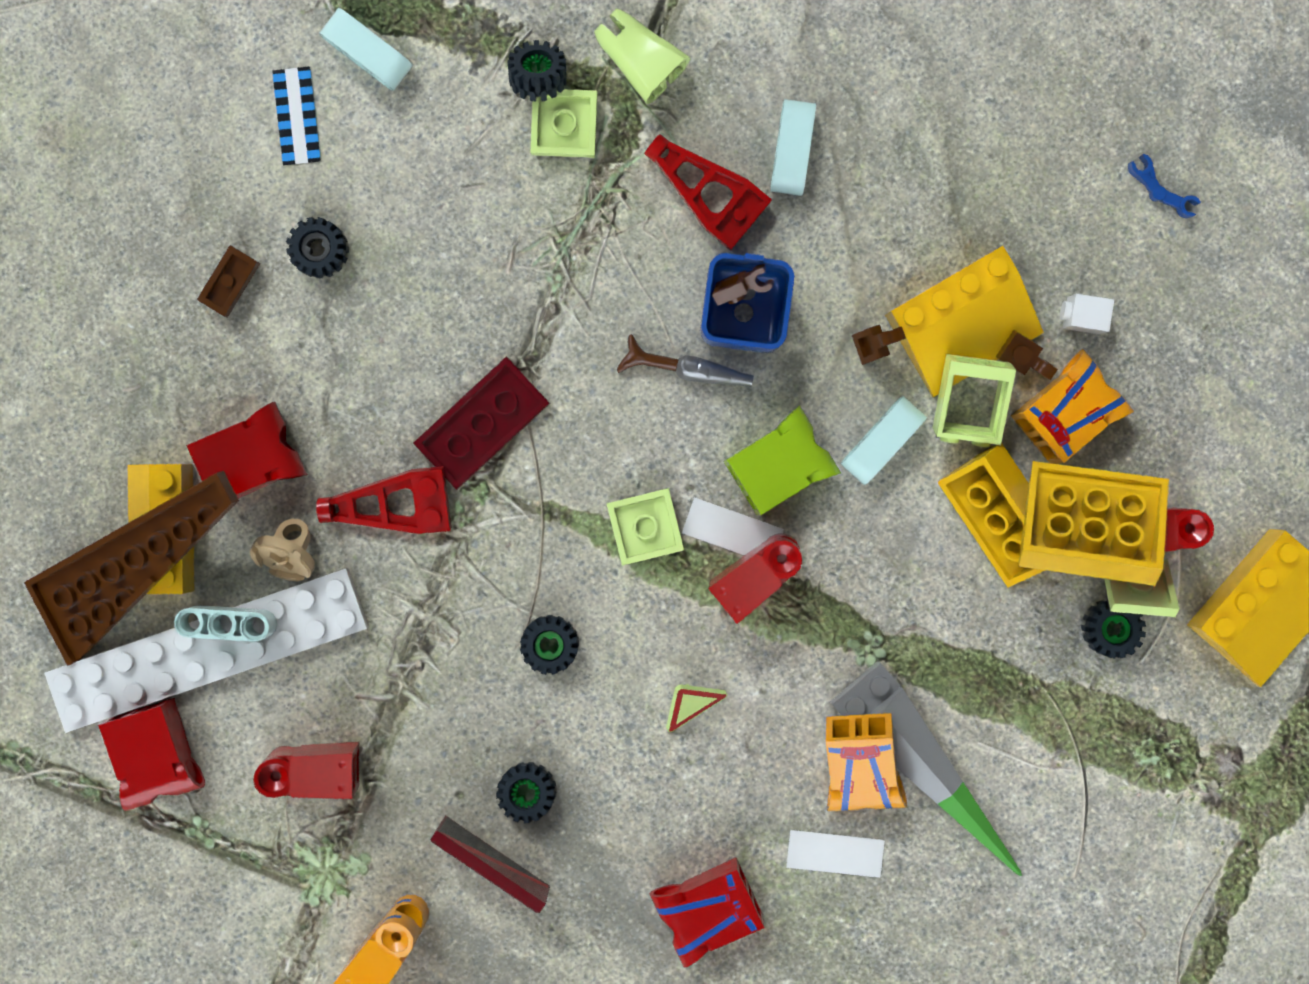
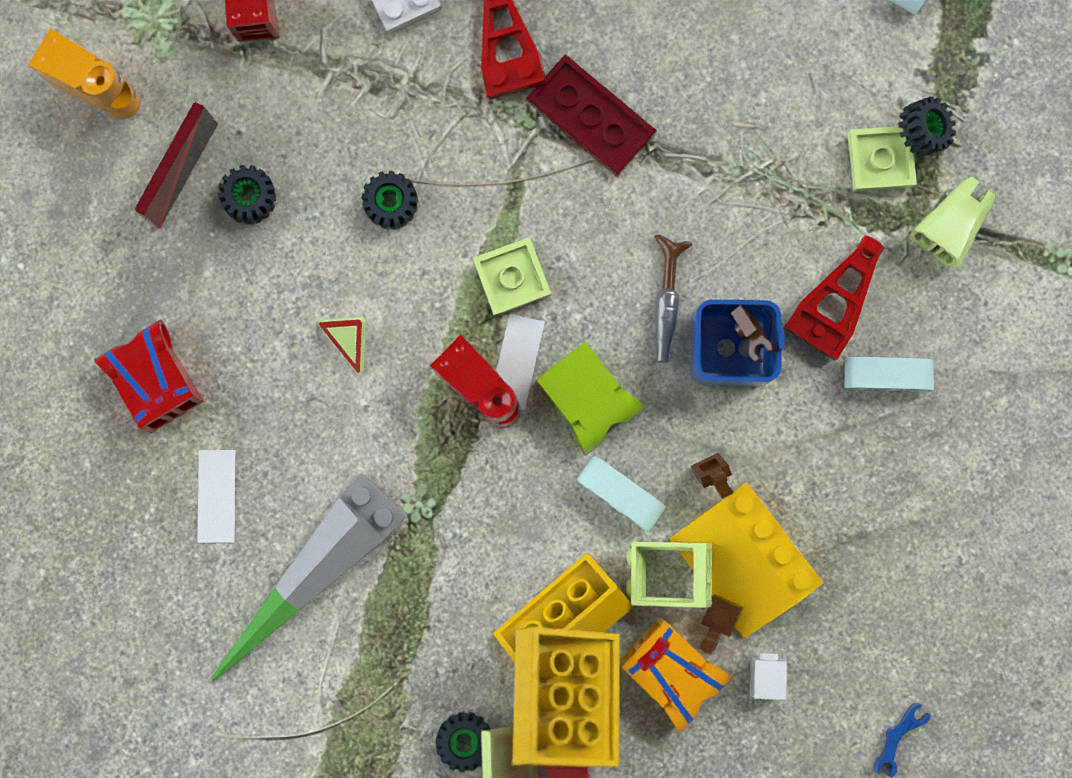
camera: 85 degrees right, 5 degrees down
(862, 763) = (307, 507): light orange piece -> none

